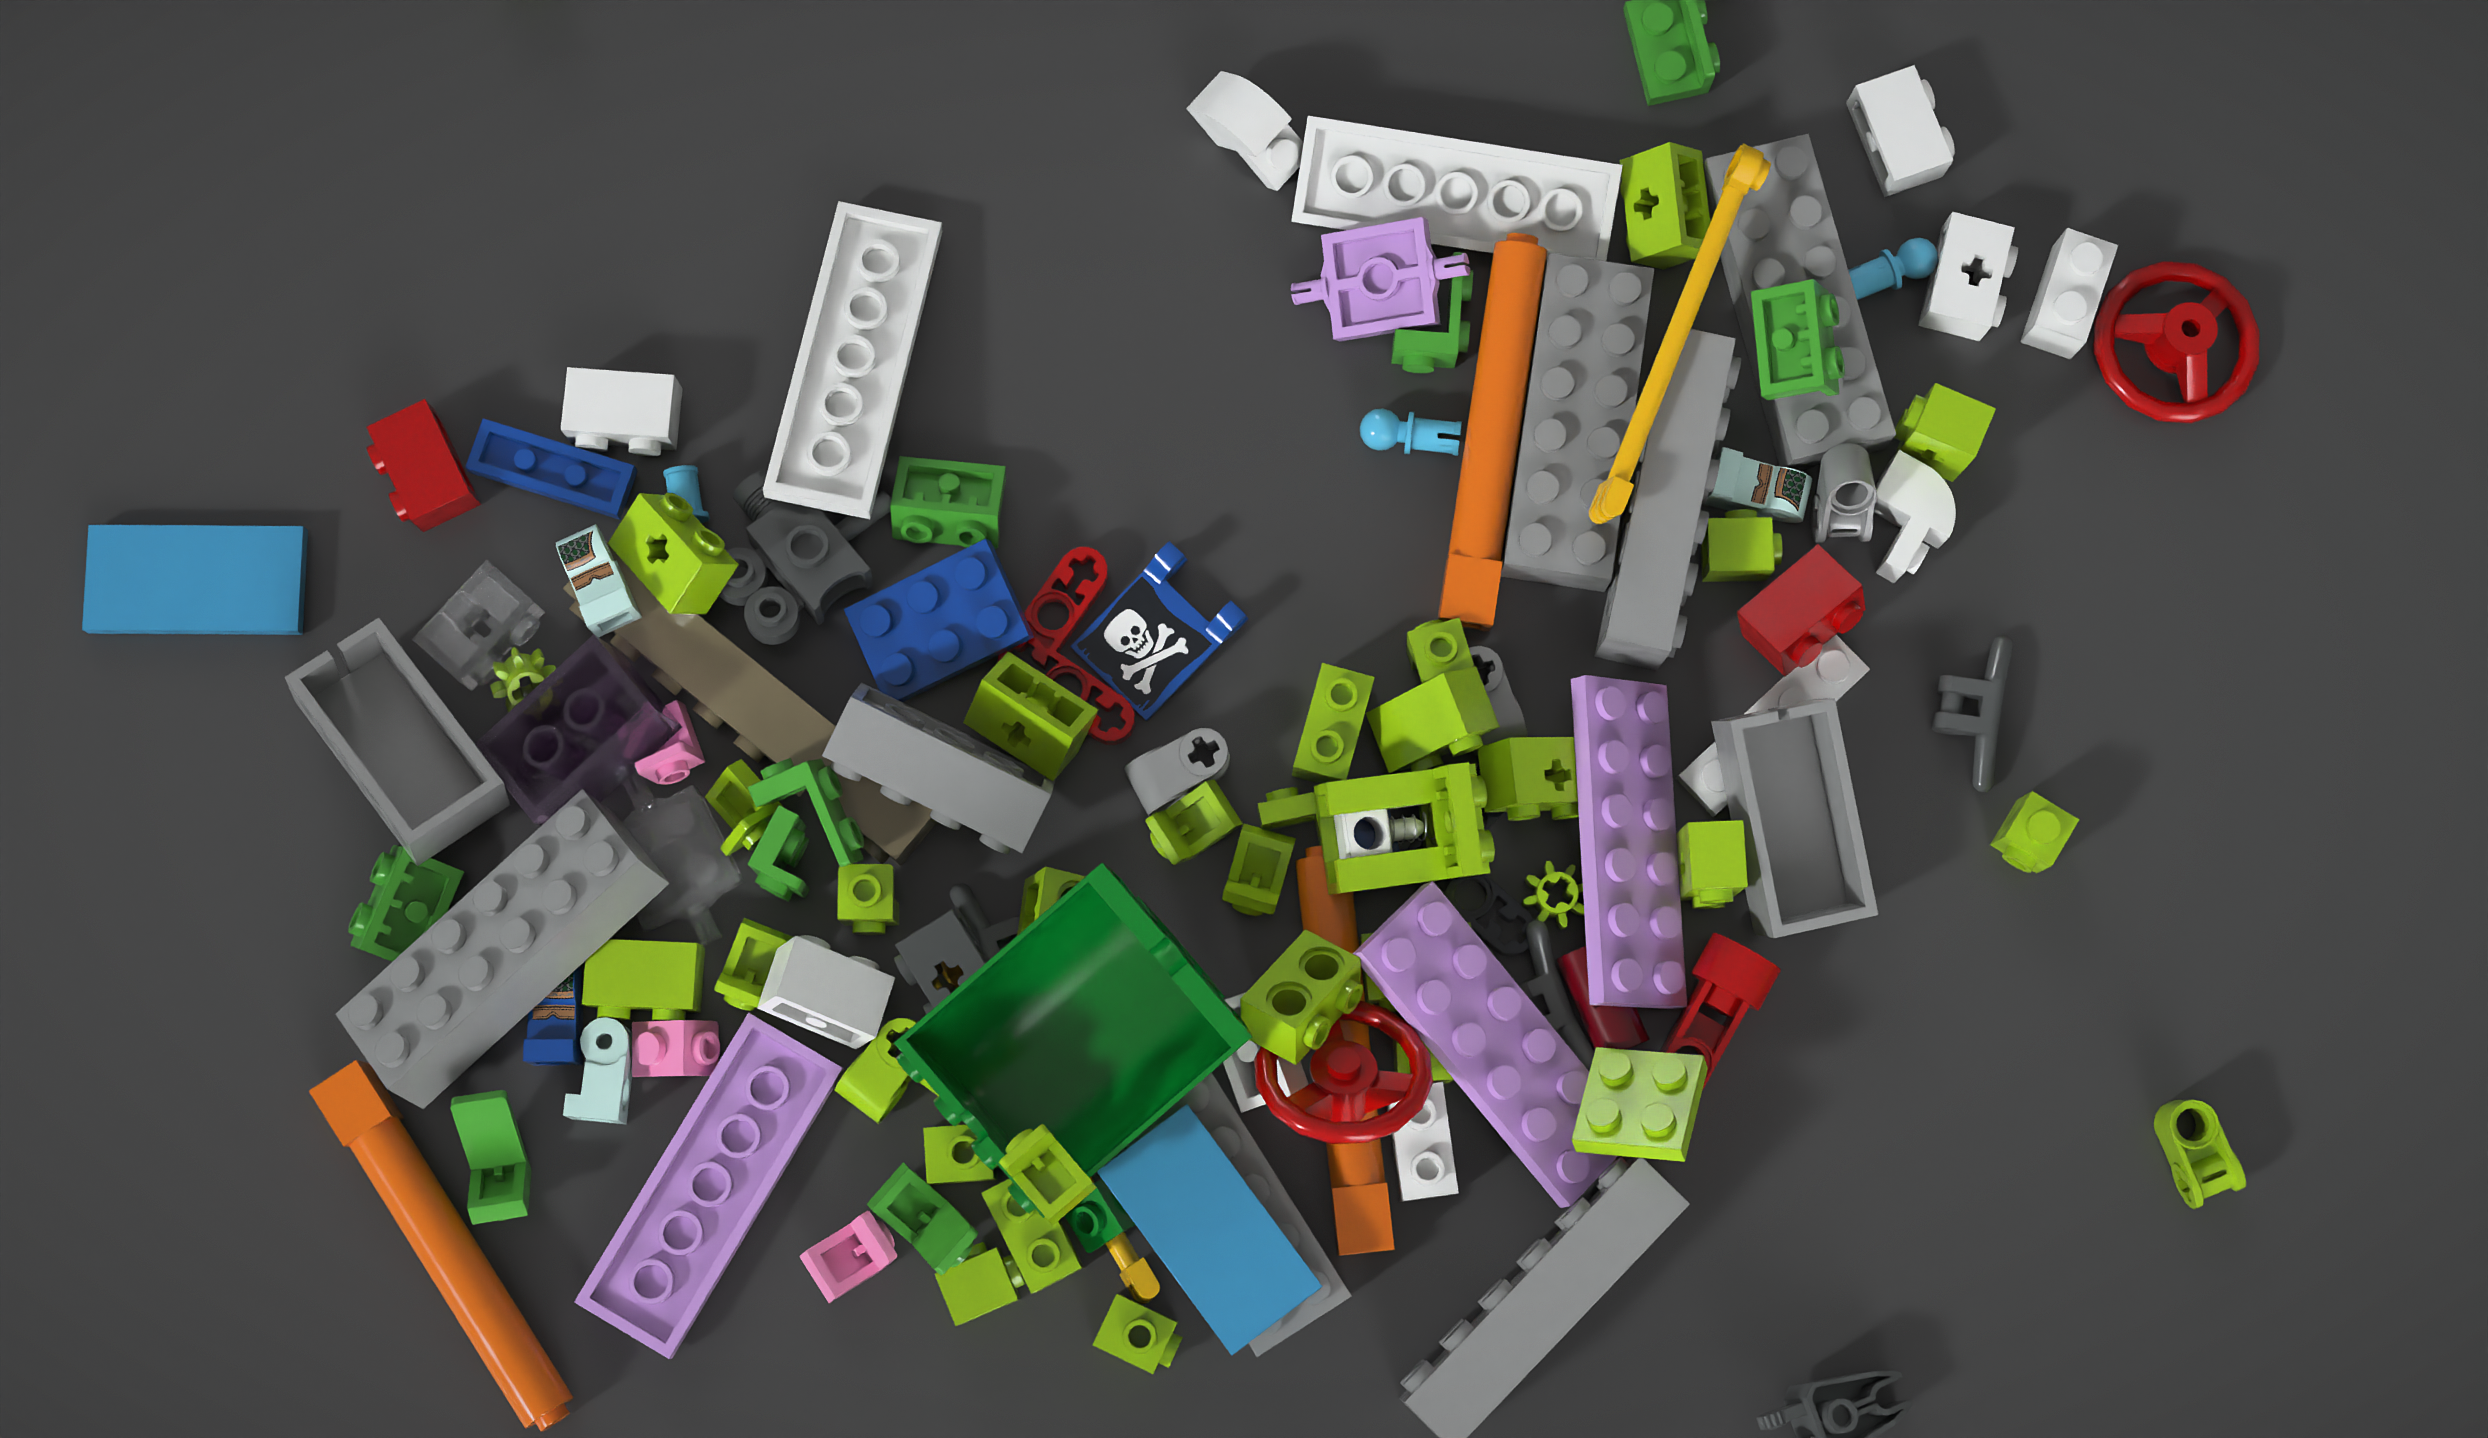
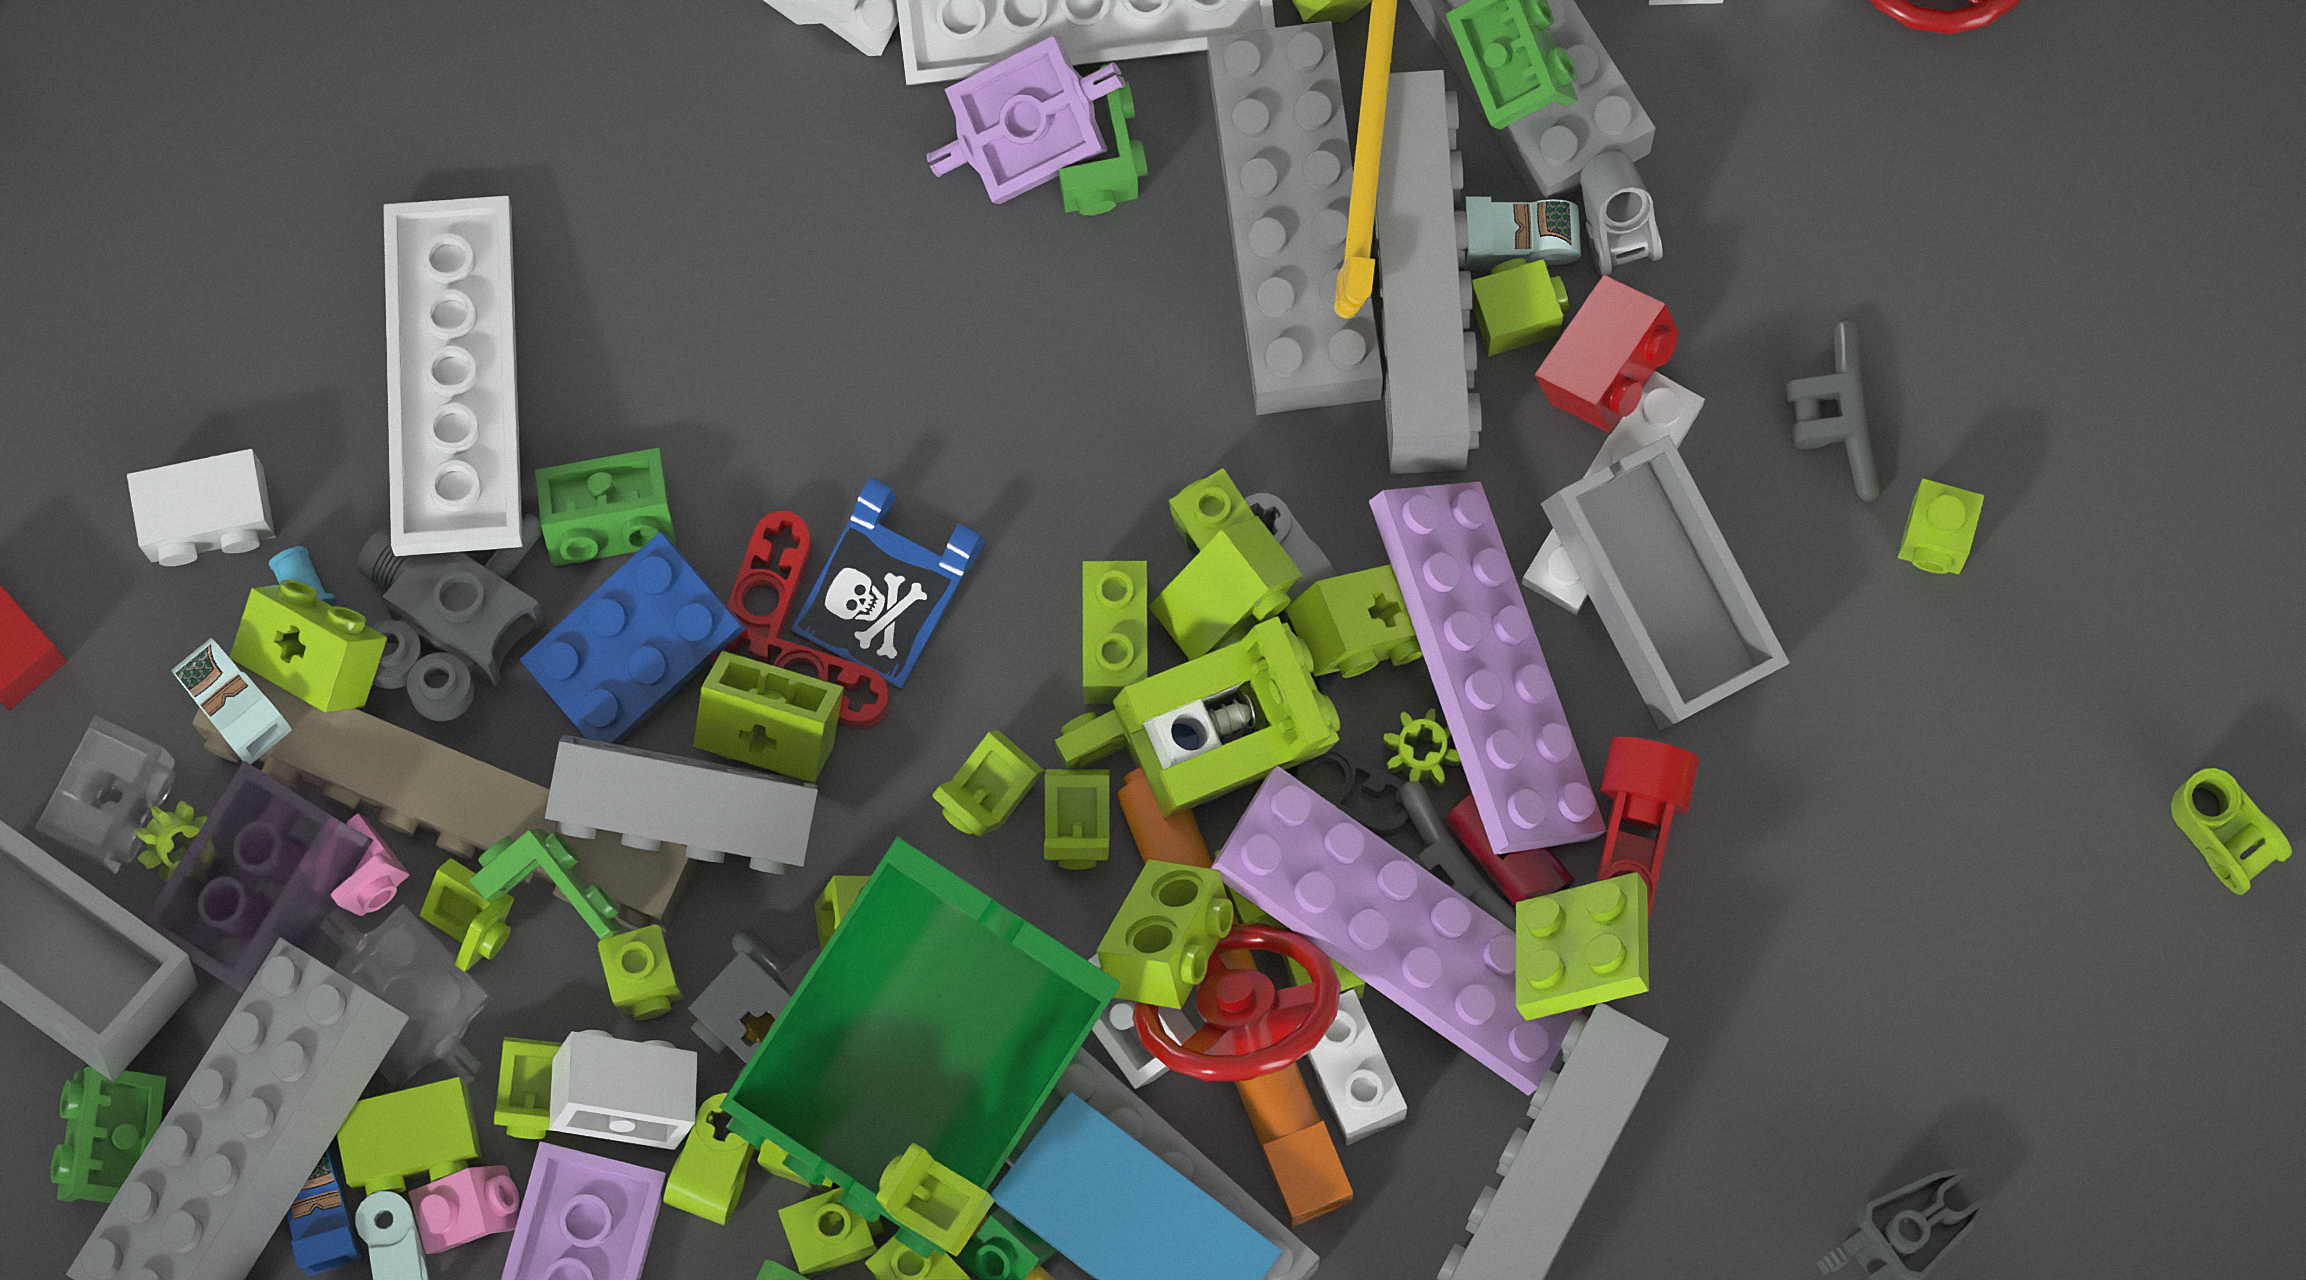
camera: 10 degrees left, 5 degrees down
(551, 468) = (138, 596): blue plate -> none
(780, 845) = (525, 952): bright green bracket -> none
(1167, 771) = (947, 732): light grey piece -> none
(1383, 429) = (1077, 286): medium azure pin -> none
(1493, 433) = (1203, 254): orange brick -> none
(1711, 862) = (1586, 660): lime brick -> none
(1919, 504) = (1702, 199): white brick -> none
(1943, 430) = (1706, 111): lime brick -> none

